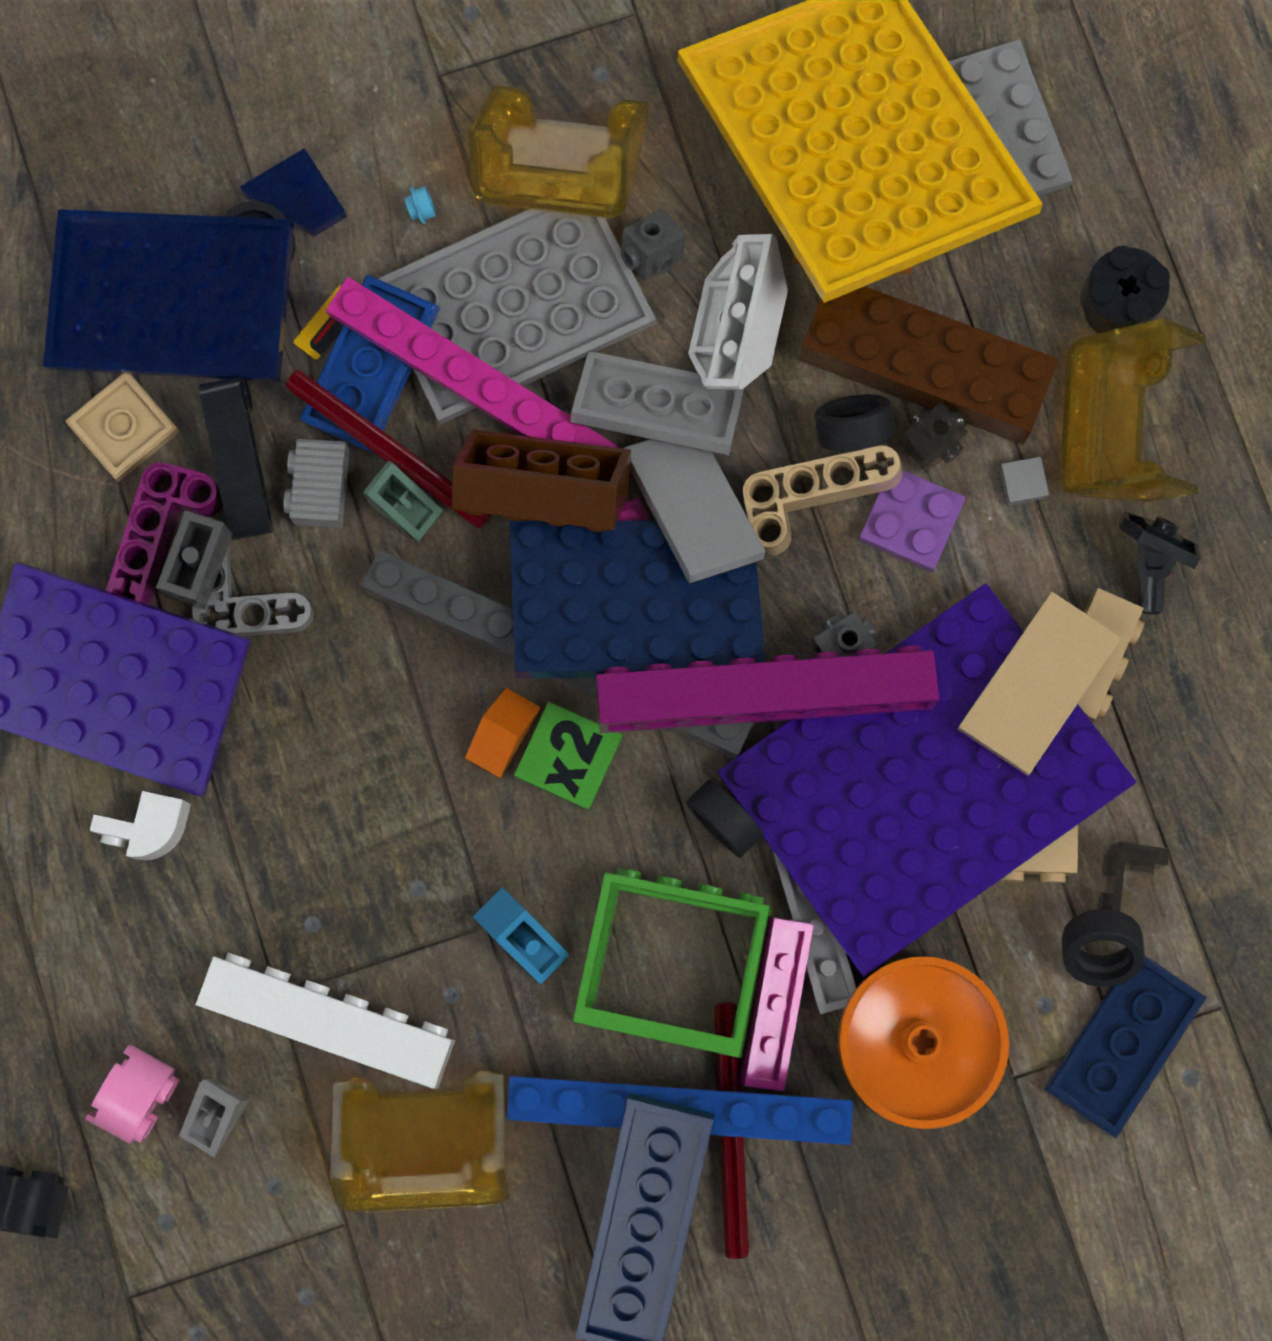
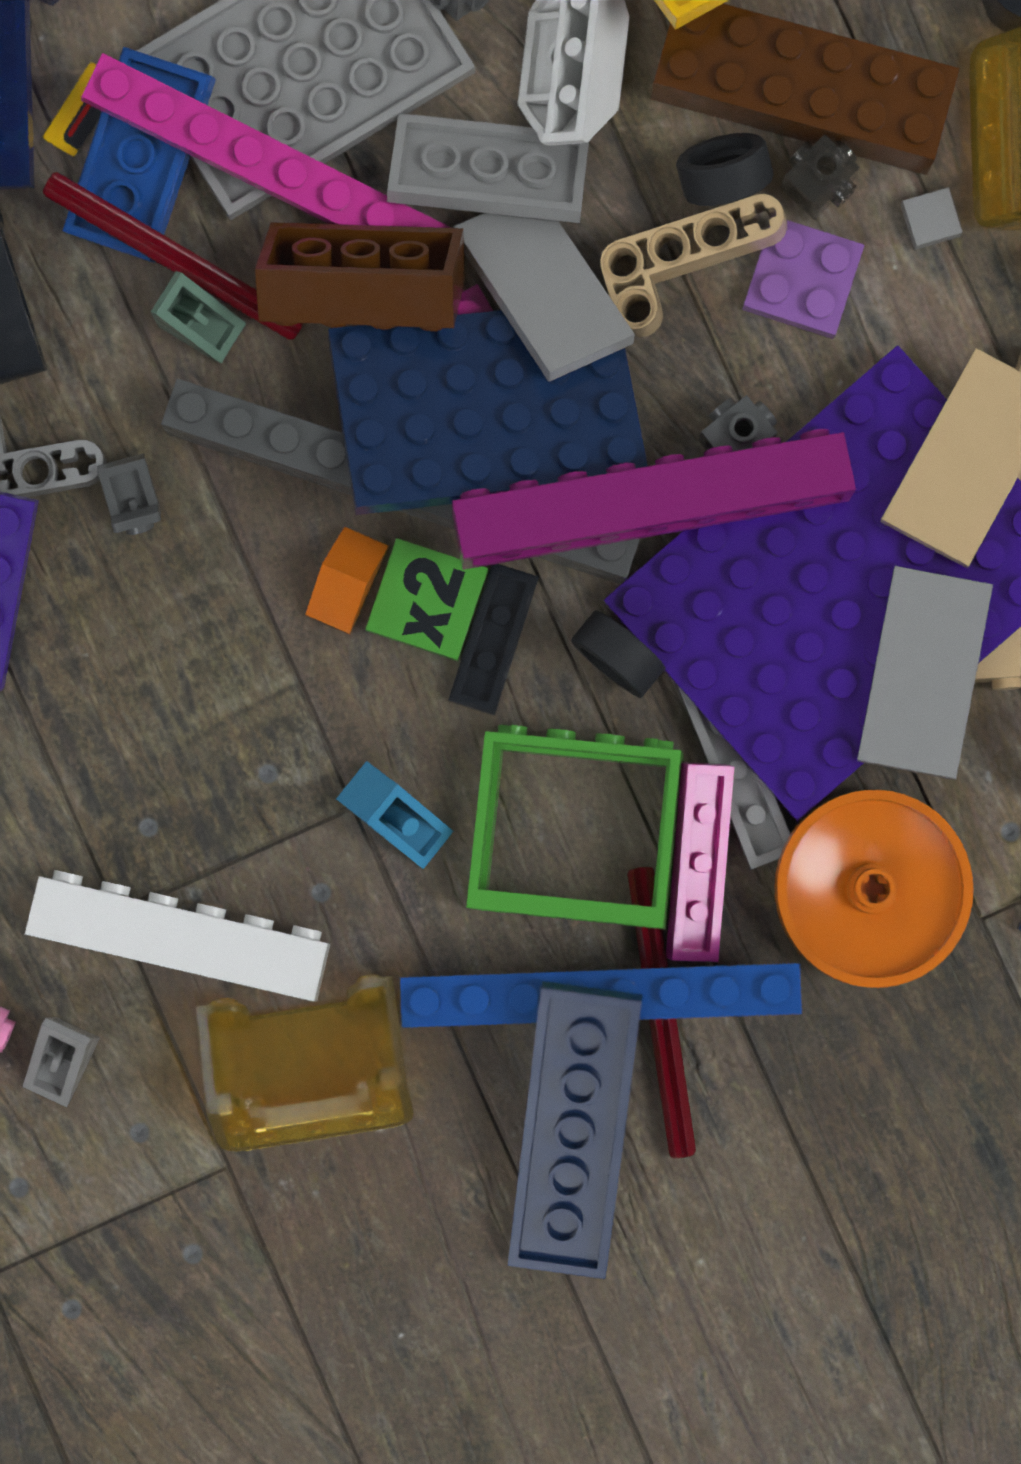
camera: 10 degrees left, 5 degrees up
(318, 483) = (93, 306): light grey brick -> none
(329, 642) = (130, 494): none -> dark grey bracket
(621, 795) = (493, 639): none -> black tile
(983, 861) = (925, 673): none -> light grey tile

